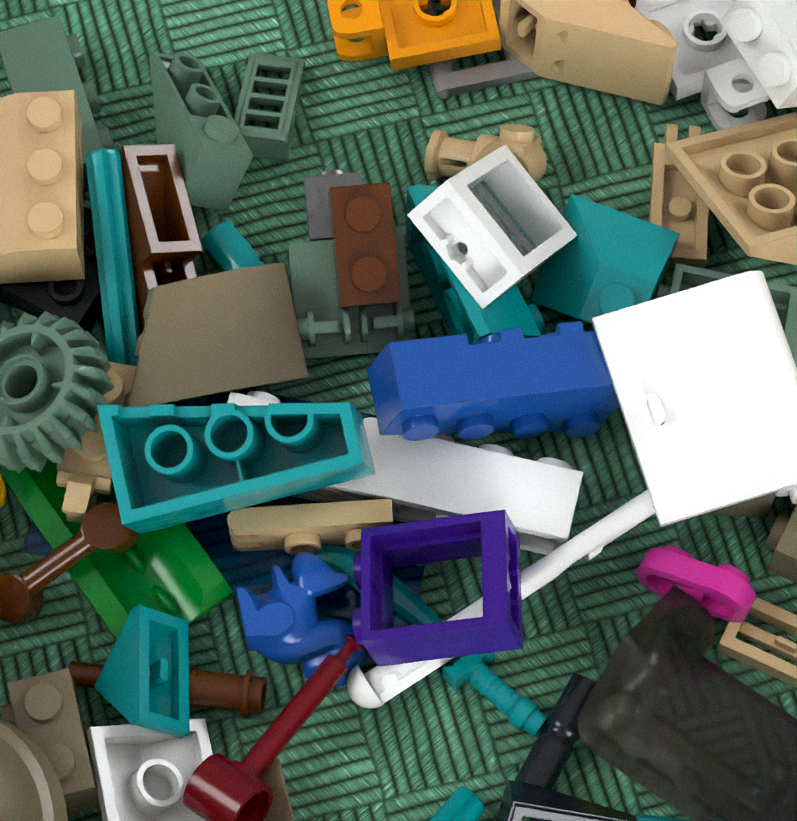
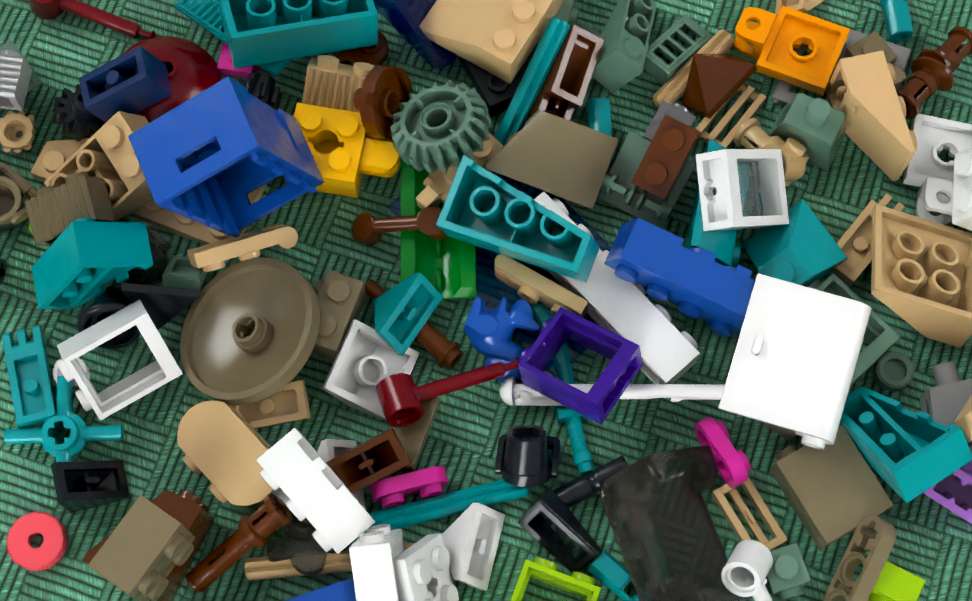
camera: 35 degrees right, 5 degrees up
(310, 116) = (676, 85): none -> tan axle
(351, 115) = (713, 81): none -> reddish brown slope
(400, 107) = (747, 93): none -> tan tile
(451, 758) = (525, 457): none -> black piece
(515, 90) = (814, 126): none -> sand green torso

